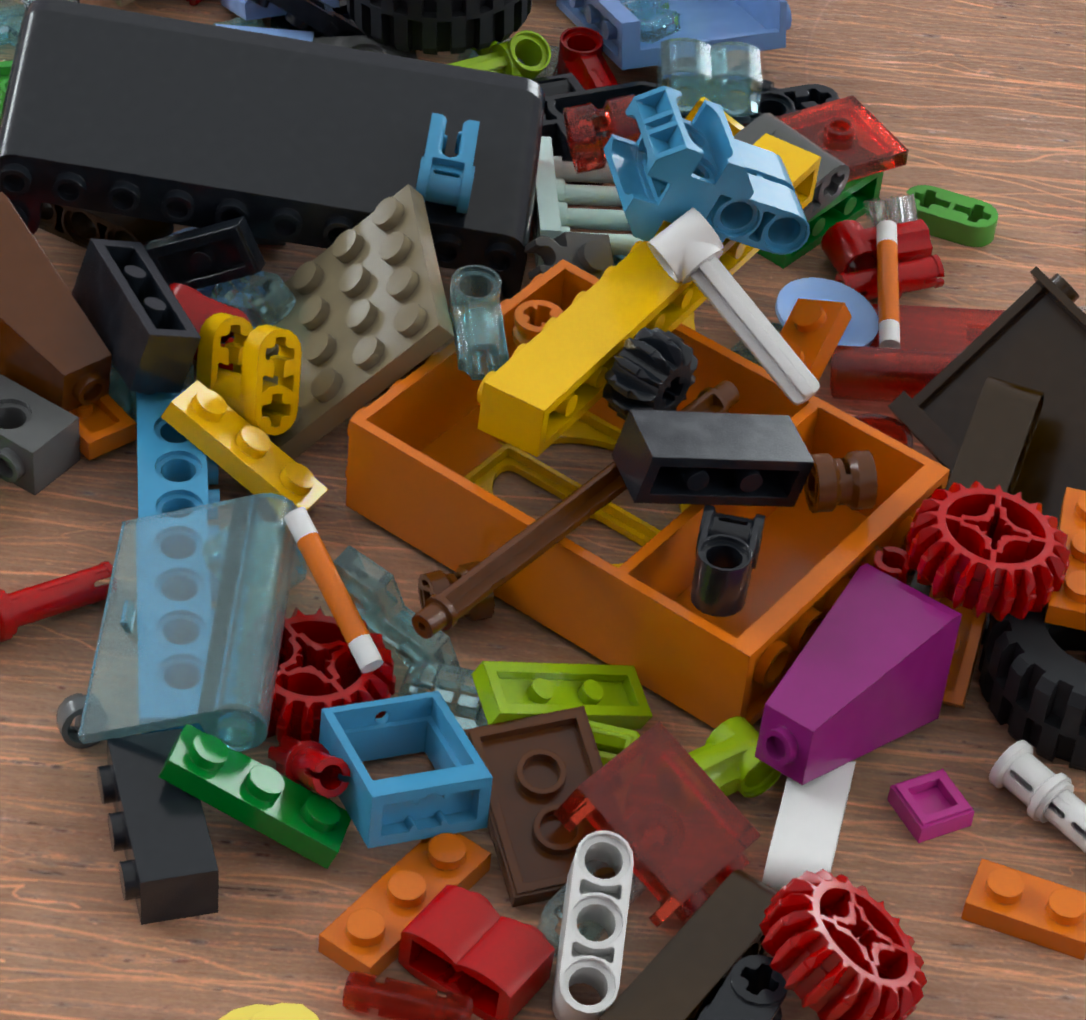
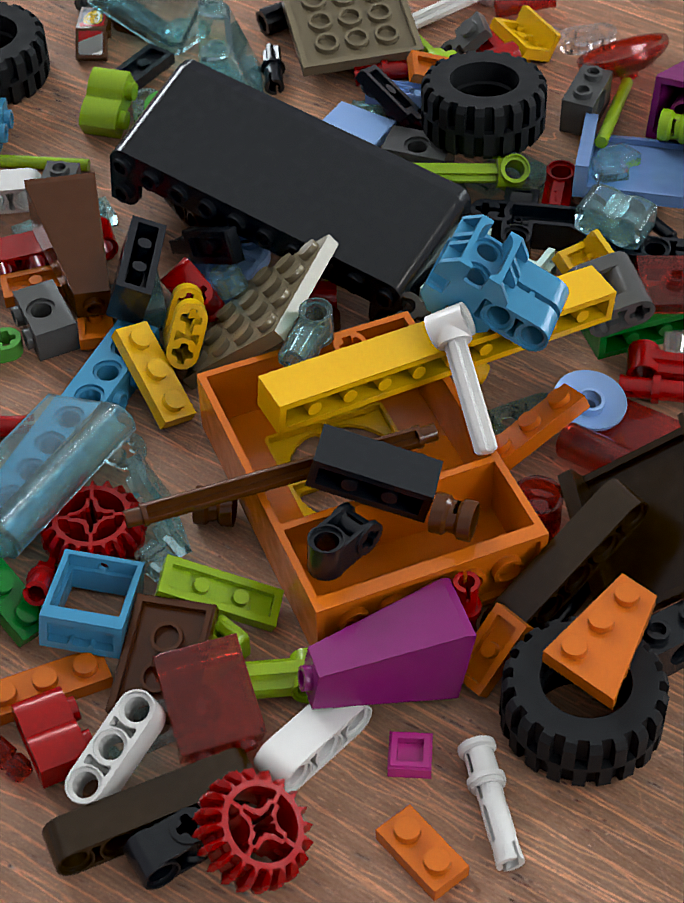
camera: 35 degrees right, 5 degrees up
(333, 590) = (117, 478): orange bar -> none
(447, 178) = (365, 238): dark azure piece -> none
(586, 121) = (525, 225): clear red wheel -> none
(650, 373) = (378, 406): black gear -> none
(888, 284) = (641, 393): orange bar -> none
(987, 550) = (526, 591): red gear -> none

